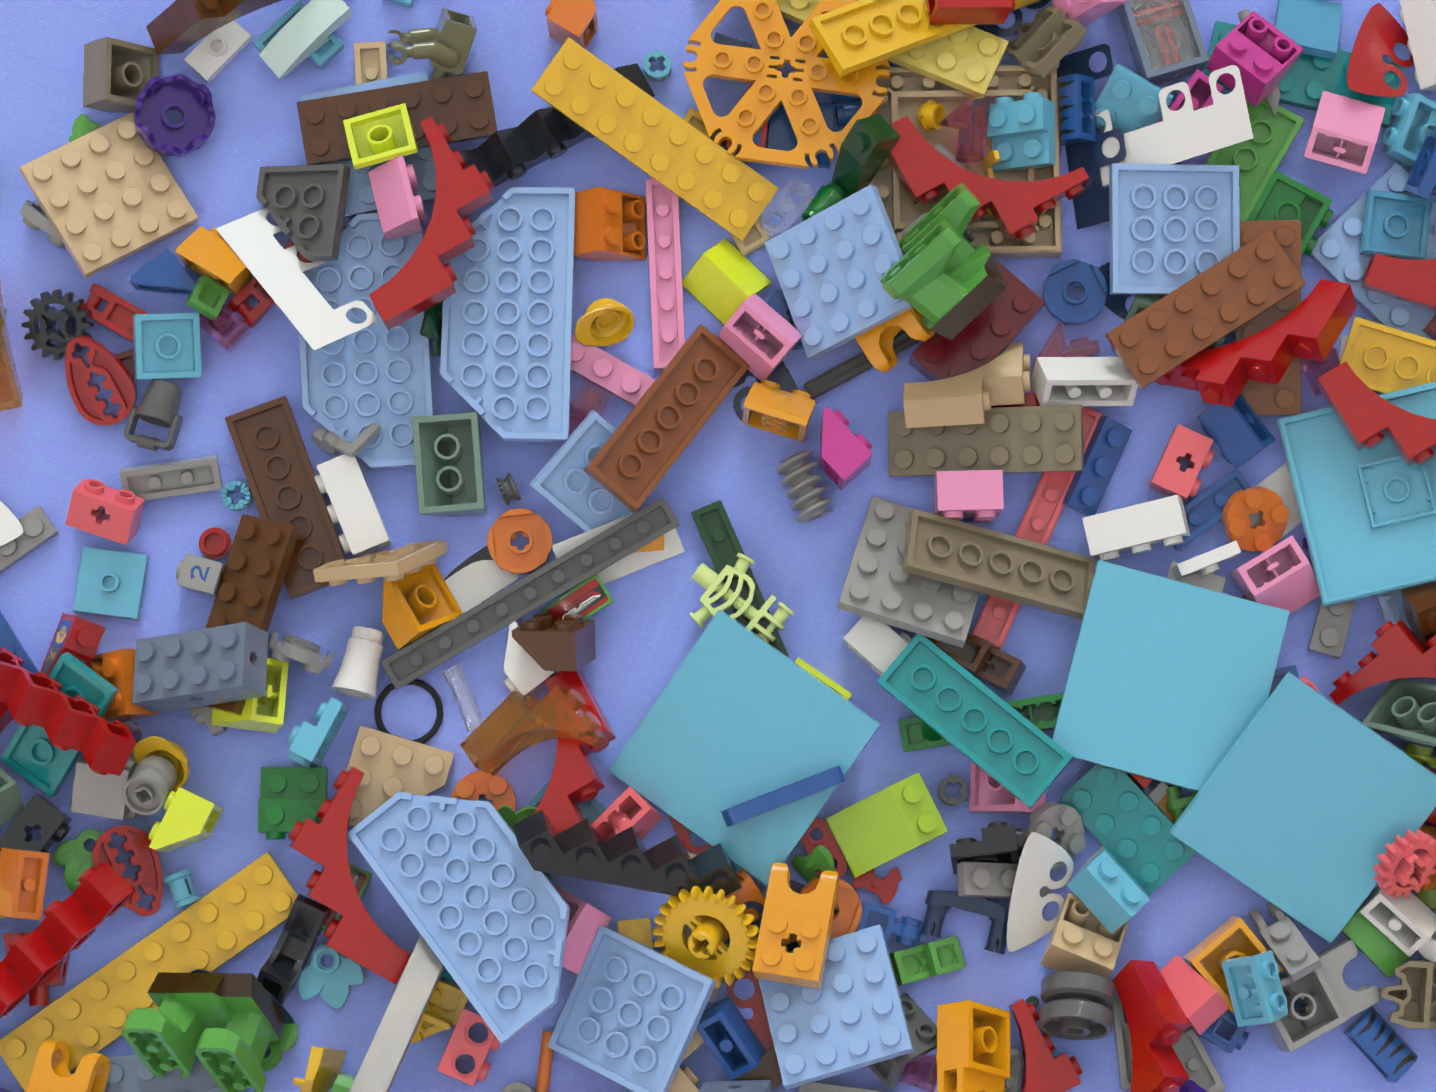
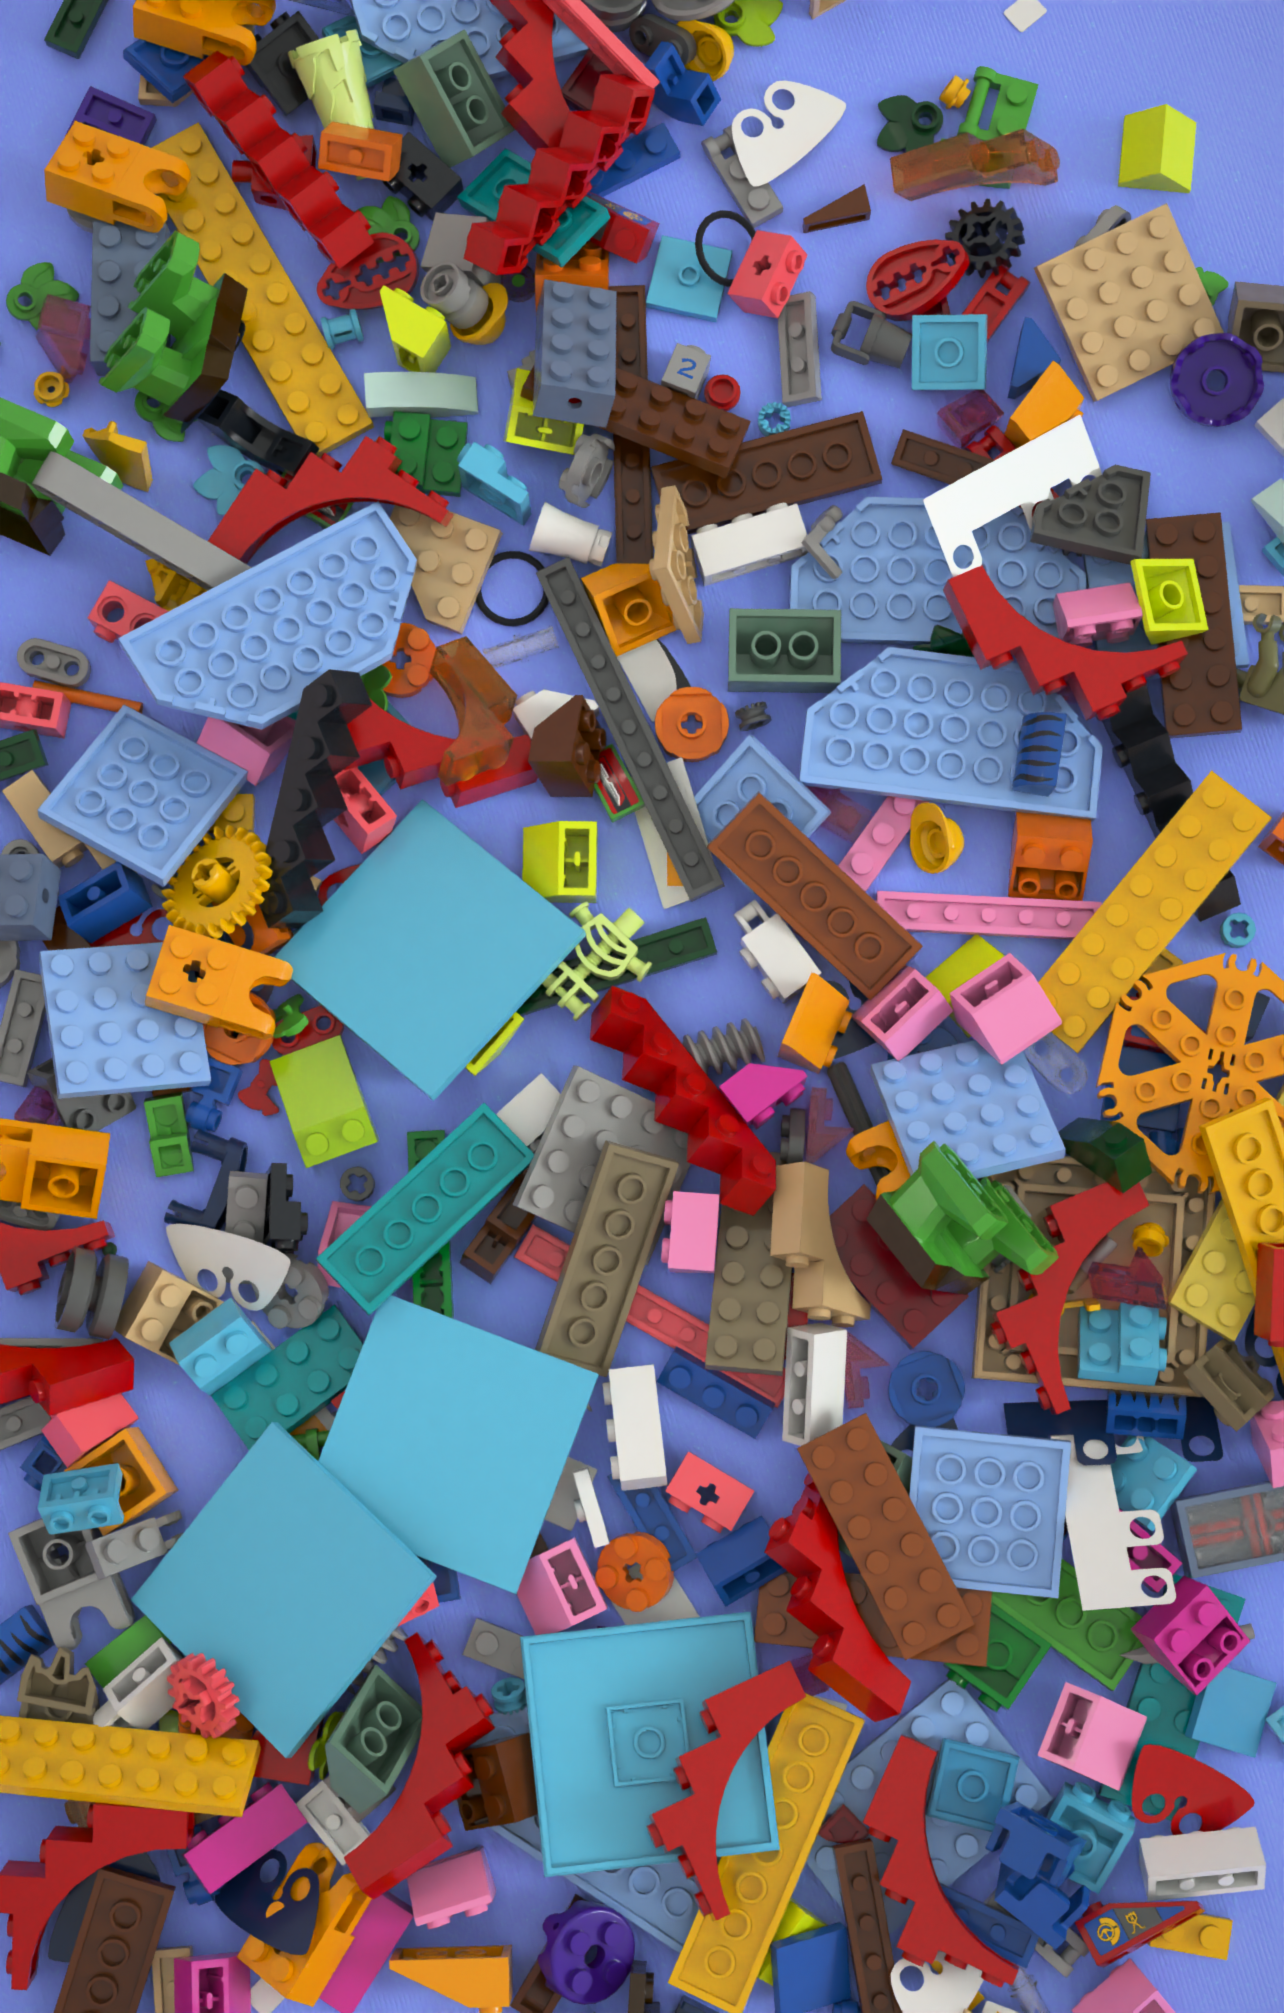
camera: 100 degrees right, 0 degrees up
(36, 447) = (846, 210): none -> reddish brown piece
(77, 573) = (699, 239): none -> black tyre
(207, 297) = (1000, 399): bright green tile -> none
(238, 811) = (420, 393): none -> light aqua slope
(264, 345) = (935, 458): none -> reddish brown tile
(288, 617) = (632, 459): none -> reddish brown tile
(525, 236) = (1039, 753): none -> blue brick
(654, 641) = (562, 860): none -> neon yellow slope
(716, 450) = (775, 953): none -> white brick
(751, 248) = (1004, 1009): none -> bright pink slope
(783, 796) = (364, 982): blue beam -> none
(824, 198) = (1060, 1106): green cone -> none
(854, 511) = (686, 1099): none -> red brick
(873, 397) = (821, 1138): none -> clear pink slope
(880, 416) = (794, 1136): none -> dark grey plate
(1376, 608) = (505, 1702): none -> medium azure bush

